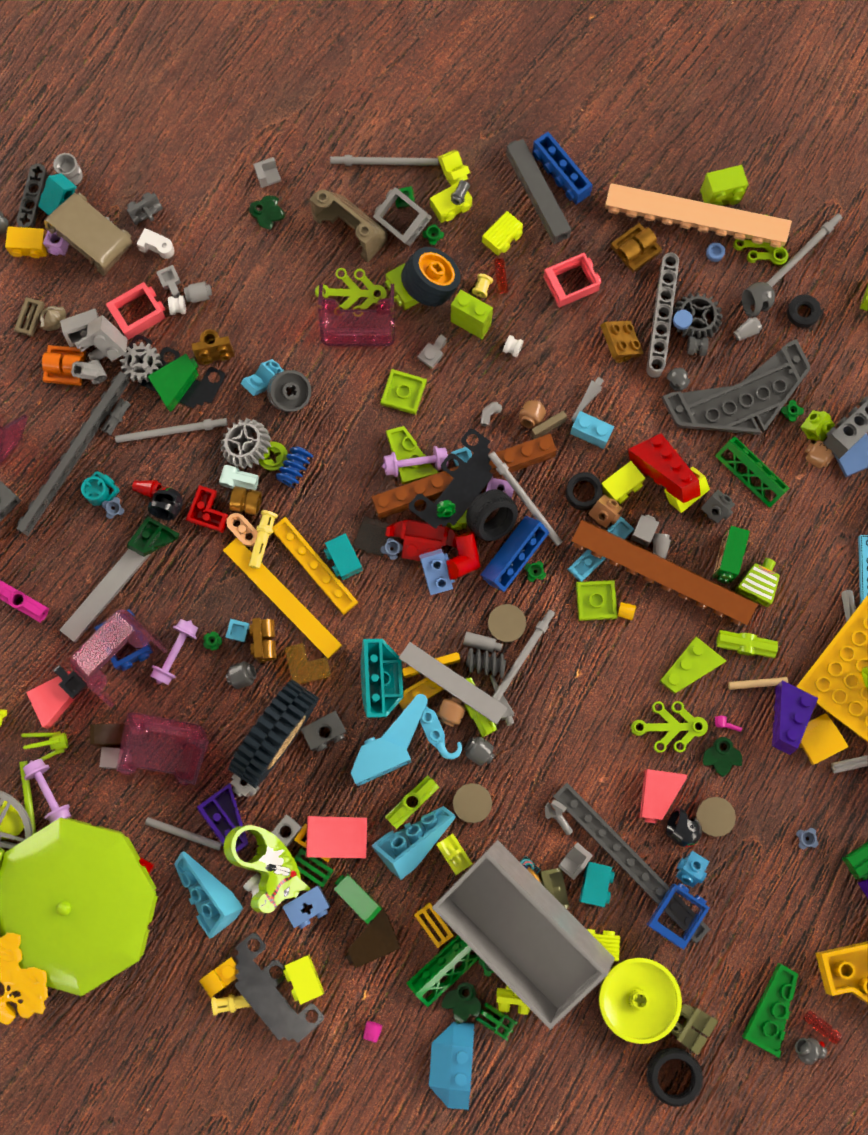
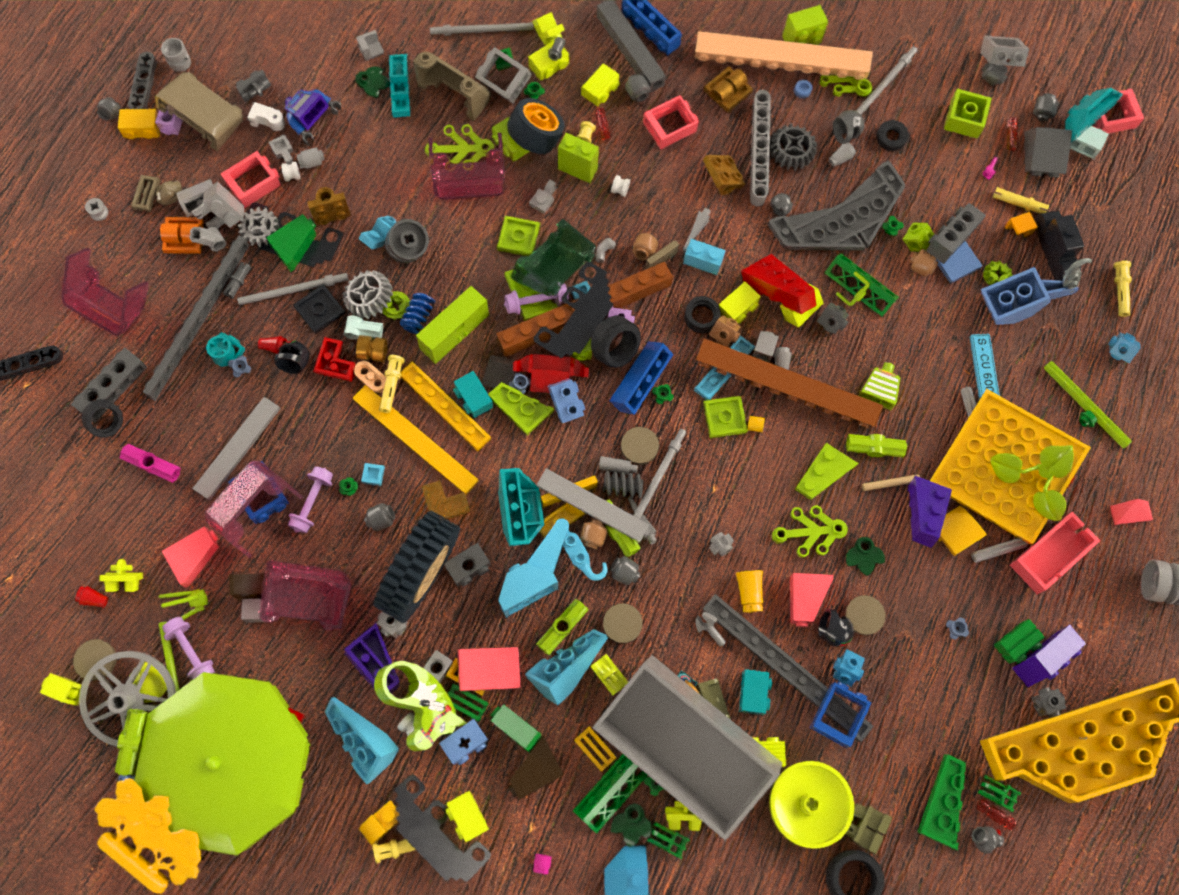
camera: 10 degrees left, 5 degrees down
(56, 191) = (164, 72): teal brick -> none
(71, 683) = (207, 536): black plate -> none
(151, 537) = (280, 390): dark green wing -> none
(183, 833) = (332, 680): light grey bar -> none
(195, 454) = (319, 309): none -> black plate
(196, 239) = (305, 110): none -> torso
(263, 648) = (399, 475): pearl gold plate -> none
(294, 218) = (399, 85): none -> teal slope
(329, 483) = (453, 324): none -> lime brick
(390, 575) = (521, 409): none -> lime wing
(437, 424) = (554, 260): none -> clear green windscreen
(446, 508) = (570, 337): green plate -> none
(468, 556) = (595, 383): red brick -> none
(502, 469) = (622, 297): light grey bar -> none
(541, 239) = (637, 88): none -> dark grey head
(575, 861) = (731, 670): light grey panel -> none
(578, 732) = (721, 544): none -> light grey gear
(603, 782) = (750, 590): none -> yellow plant
(682, 319) = (780, 148): medium blue tile -> none
(697, 346) = (796, 173): dark grey wheel -> none
(721, 722) = (859, 523): dark pink hand -> none
(731, 554) = (851, 361): green brick -> none
(749, 483) = (860, 294): none -> lime piece
(829, 1007) = (1001, 794): none -> green arm

